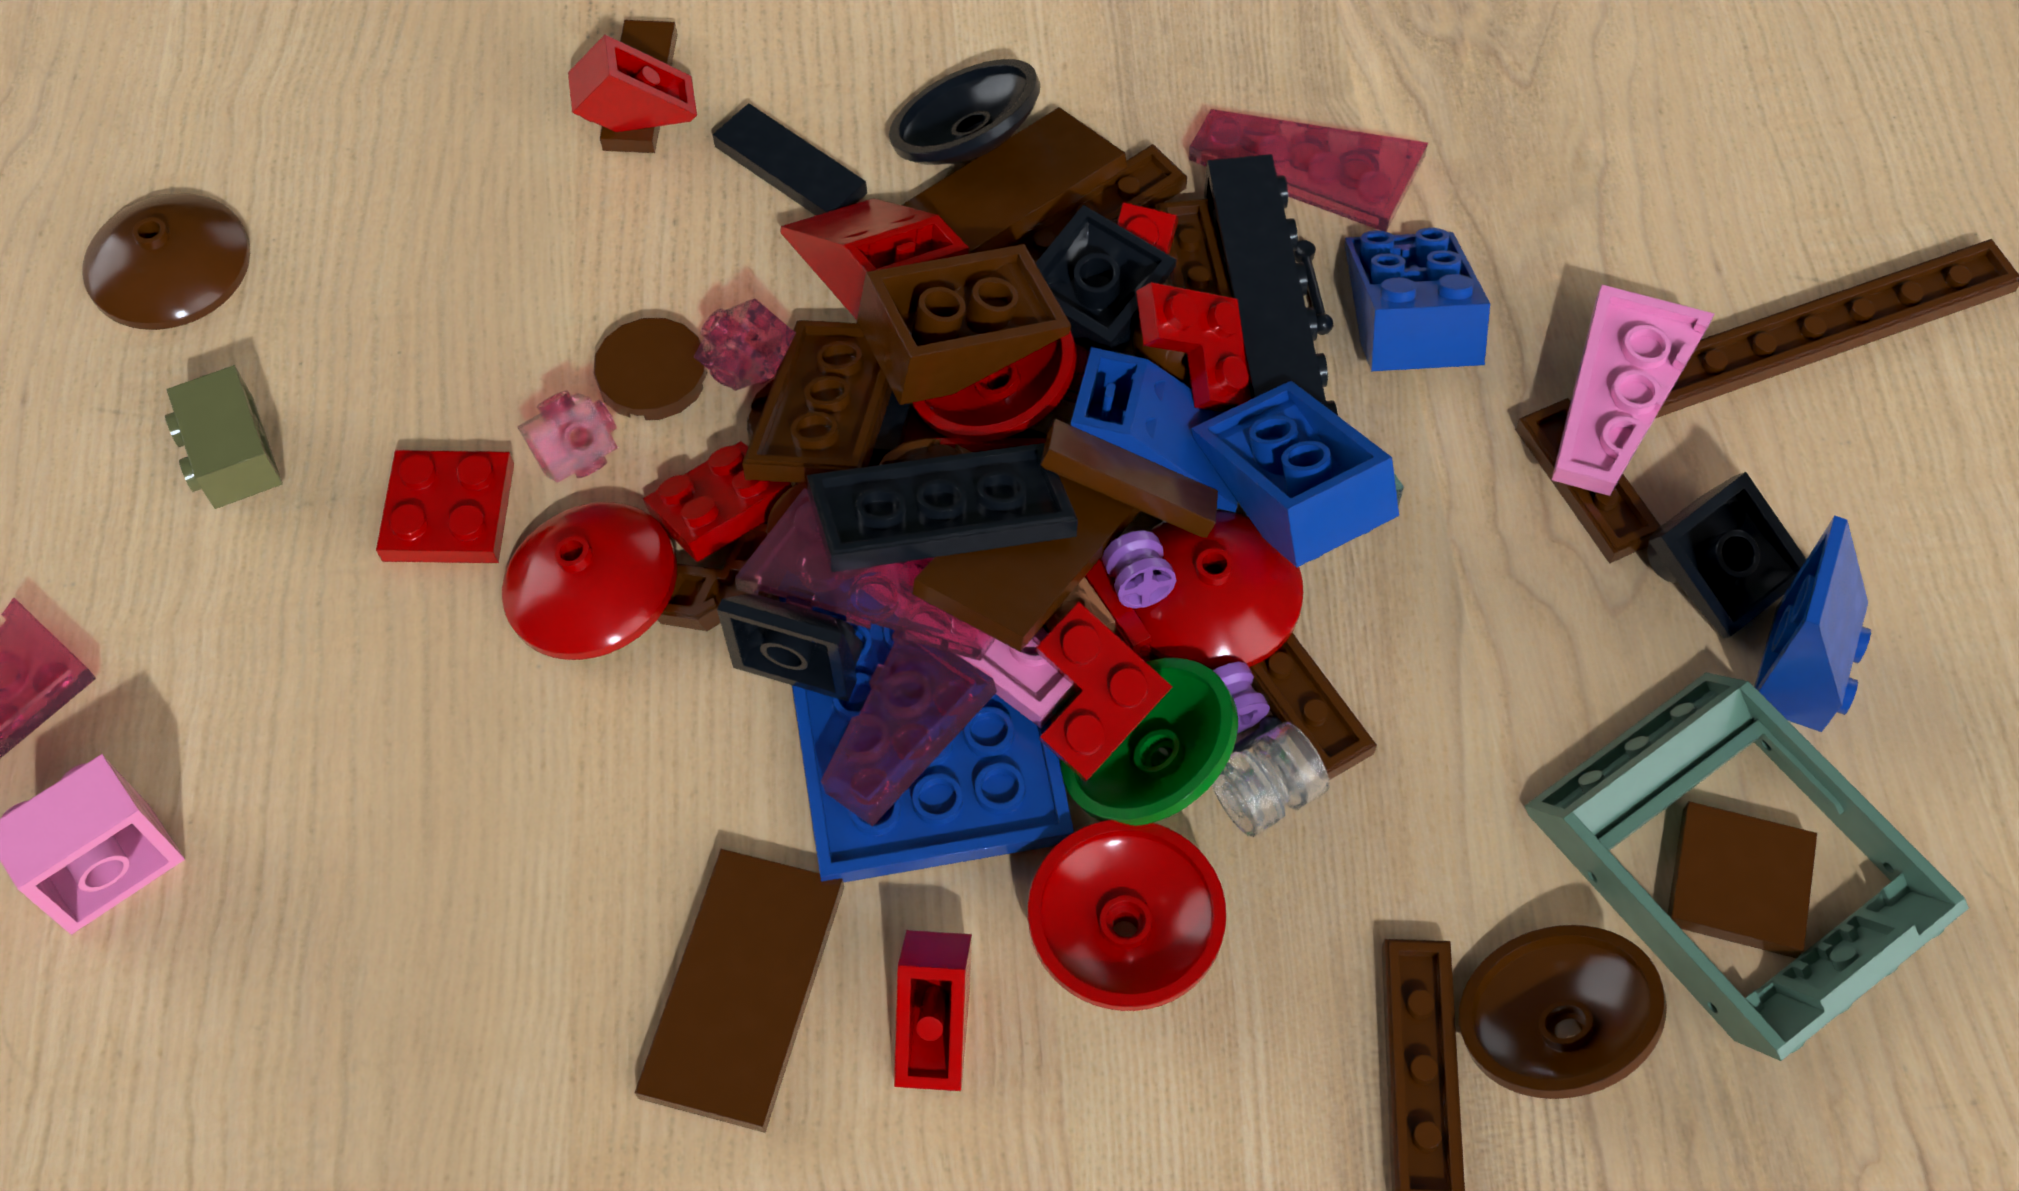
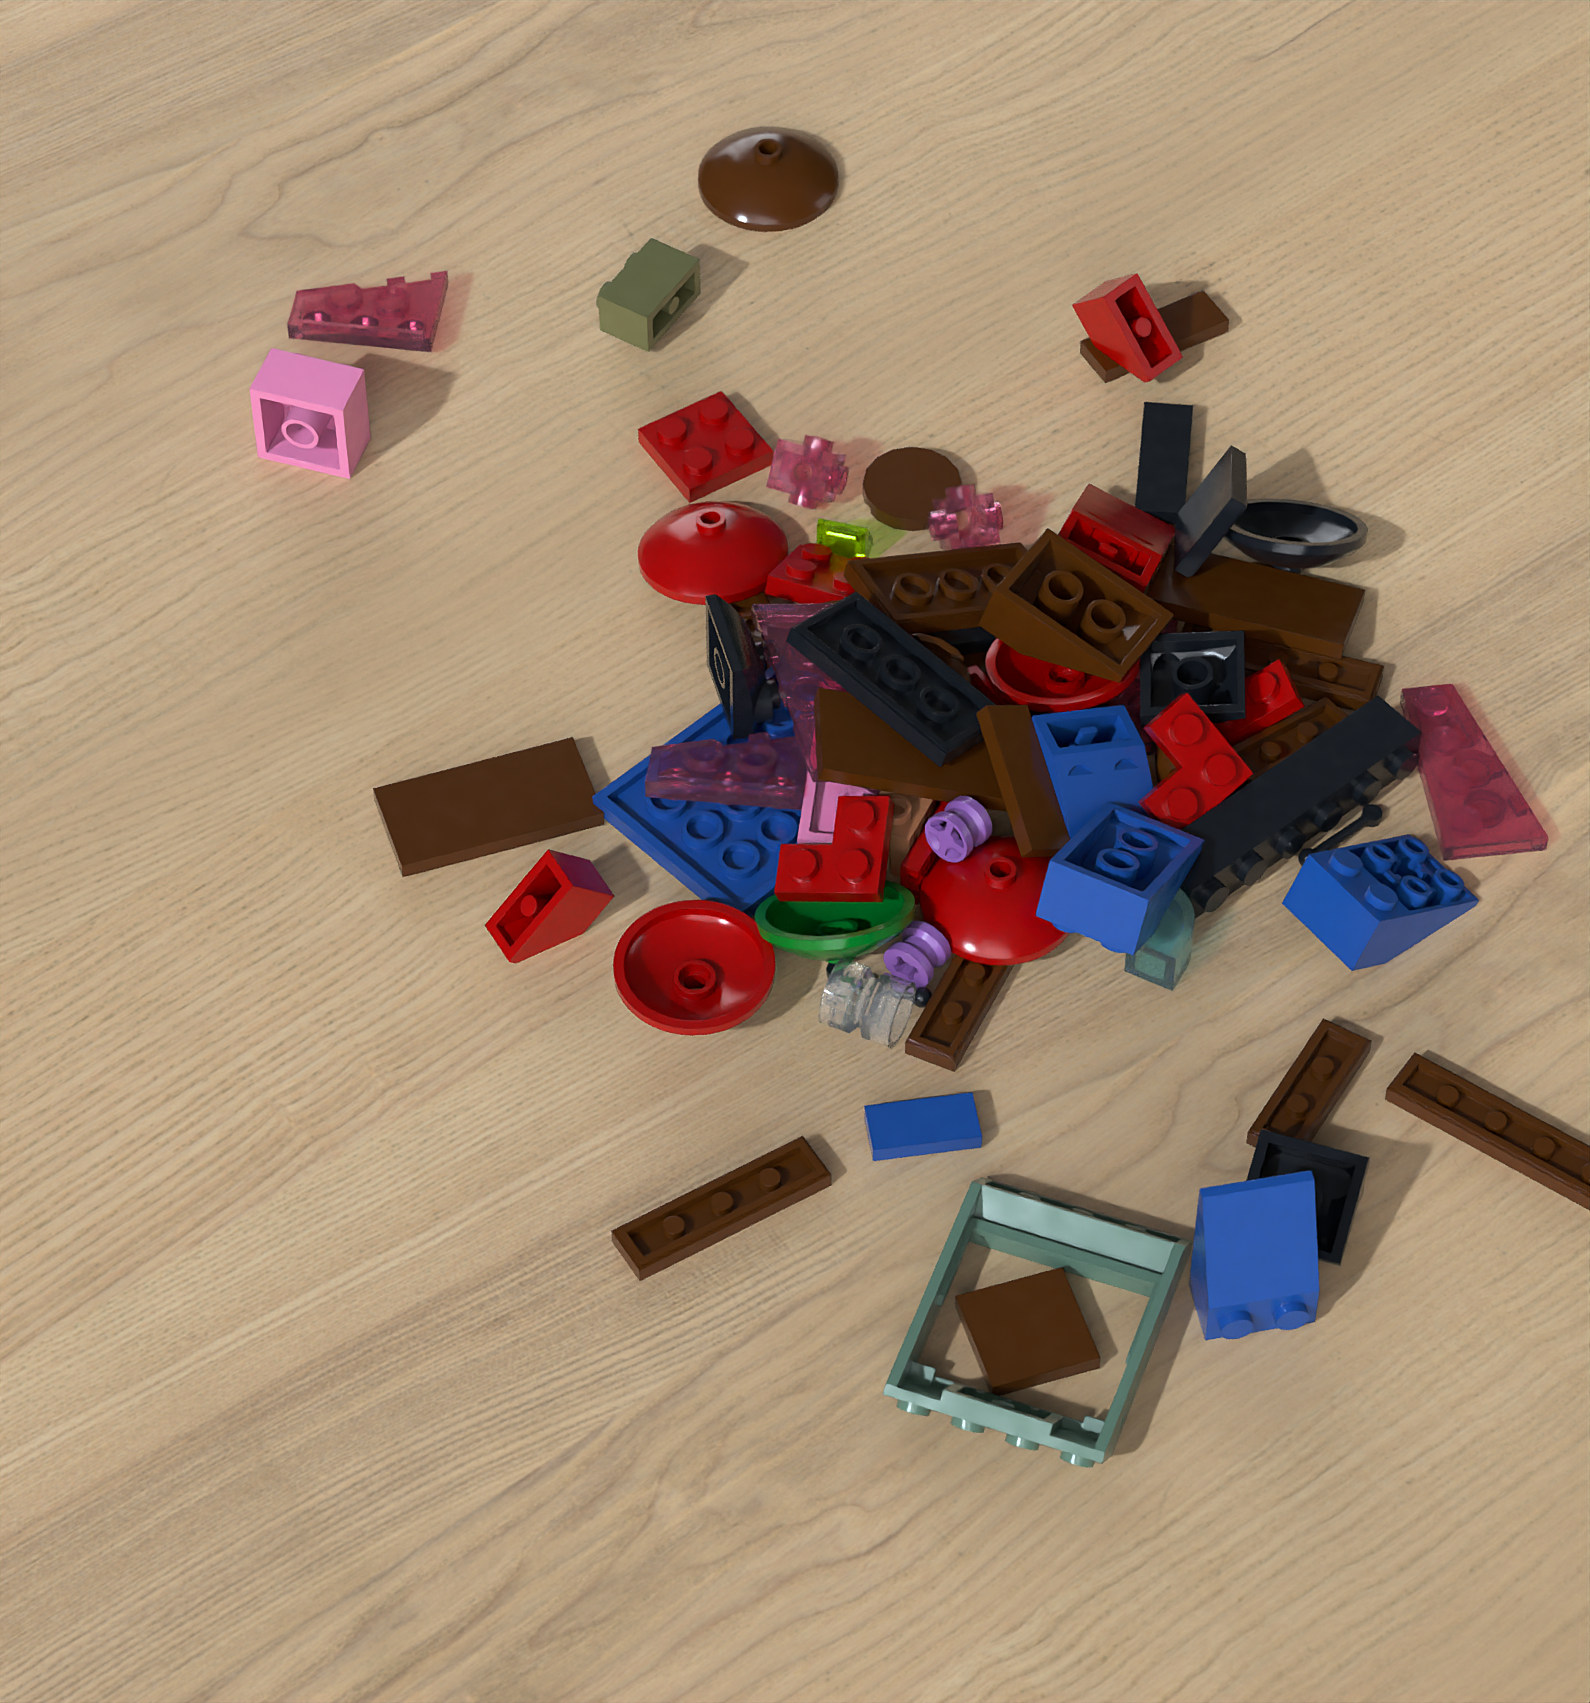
camera: 55 degrees right, 10 degrees down
(672, 459) = (844, 538): none -> clear neon green slope
(912, 150) = (1210, 512): none -> black tile
(1434, 822) = (922, 1126): none -> blue tile
(1556, 987) = (816, 1246): reddish brown dish -> none
(1623, 379) = (1410, 1055): bright pink wing -> none

